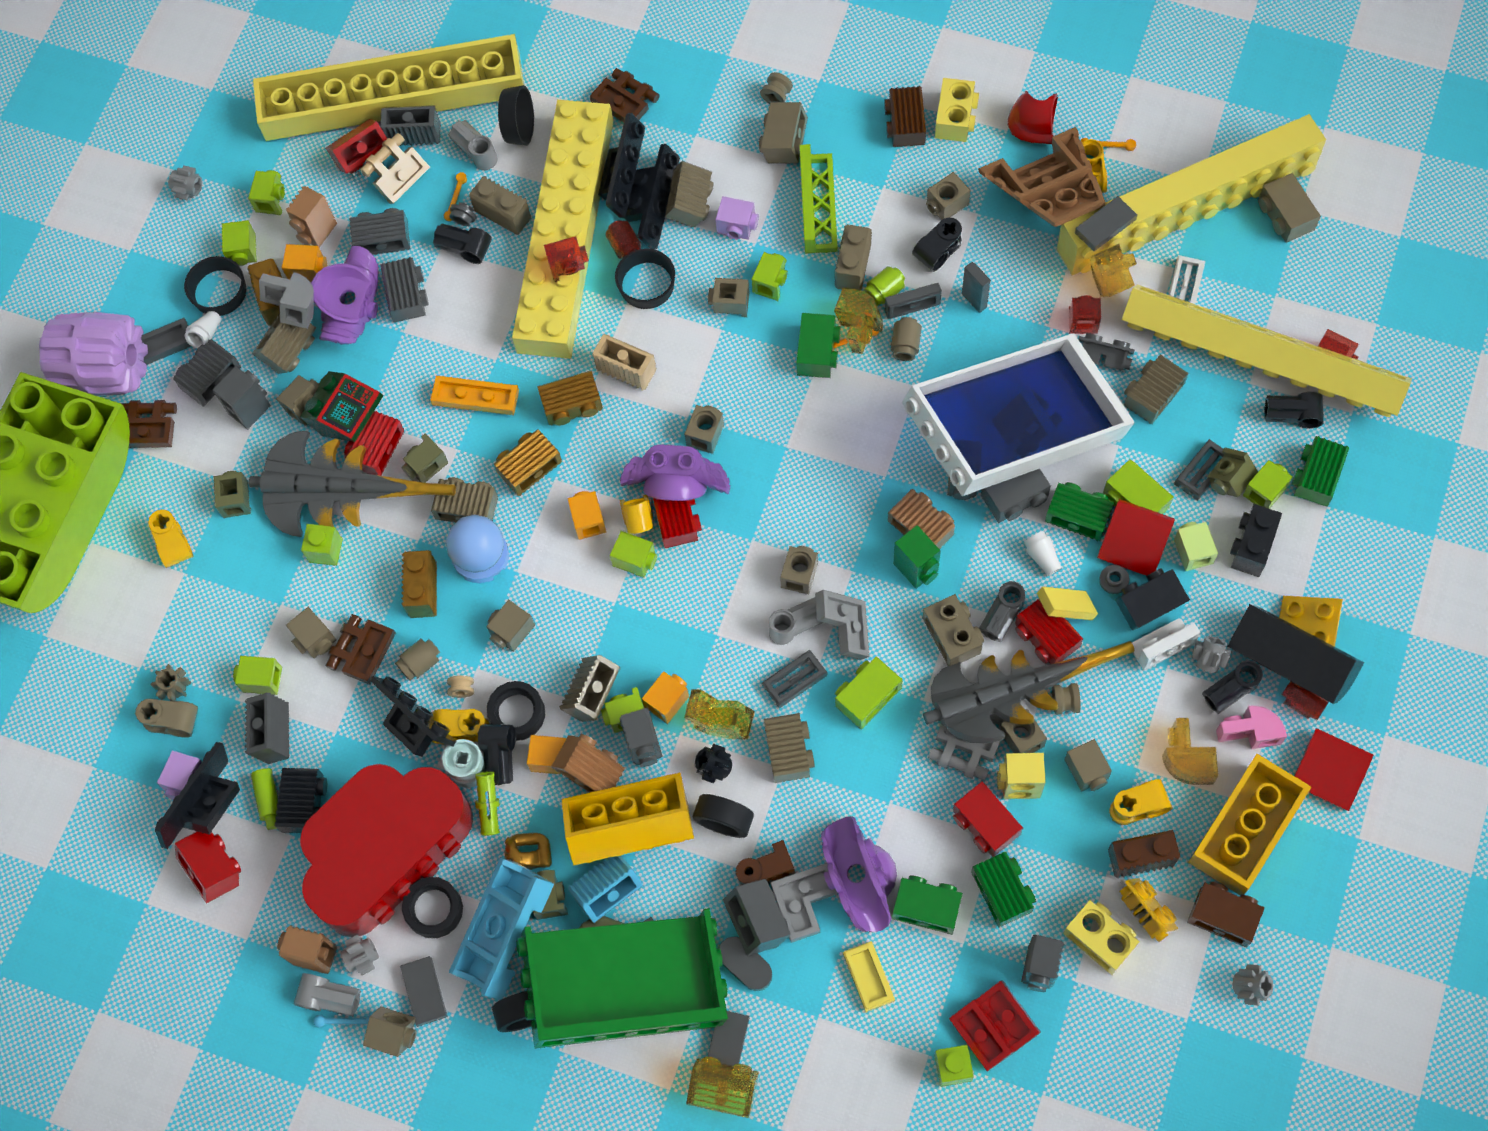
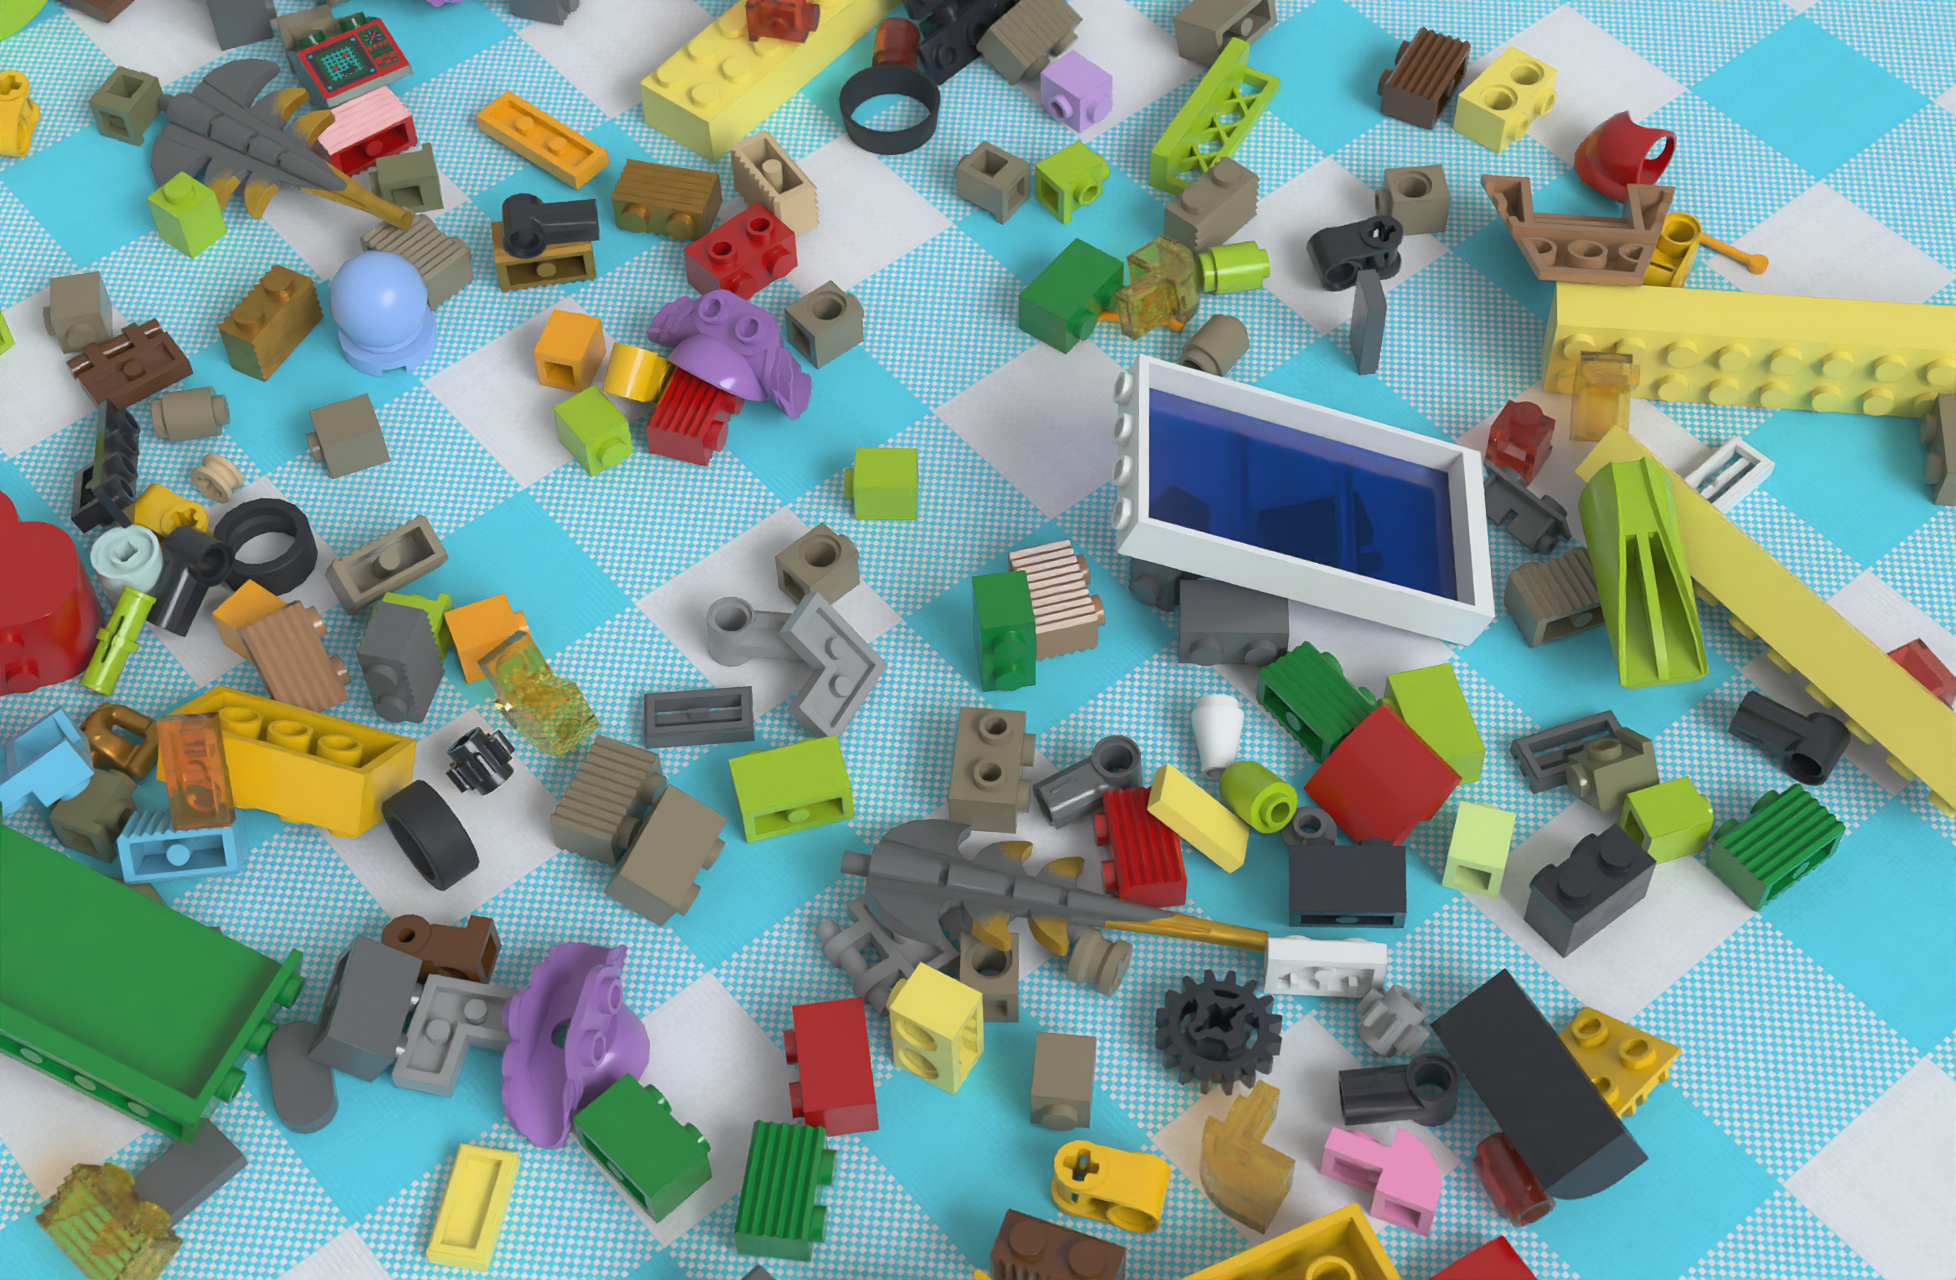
camera: 25 degrees right, 15 degrees down
(526, 457) = (532, 224): none -> black piece
(605, 854) = (196, 771): none -> clear orange plate
(634, 412) = (742, 254): none -> red brick
(798, 504) = (883, 484): none -> lime brick
(838, 761) = (666, 857): none -> dark tan brick
(913, 301) = (1263, 304): dark grey tile -> none
(1084, 575) = (1258, 796): none -> lime brick
(1106, 223) = (1624, 309): dark grey tile -> none
(1128, 696) = (1218, 1032): none -> black gear
(1194, 367) = (1642, 575): none -> lime piece

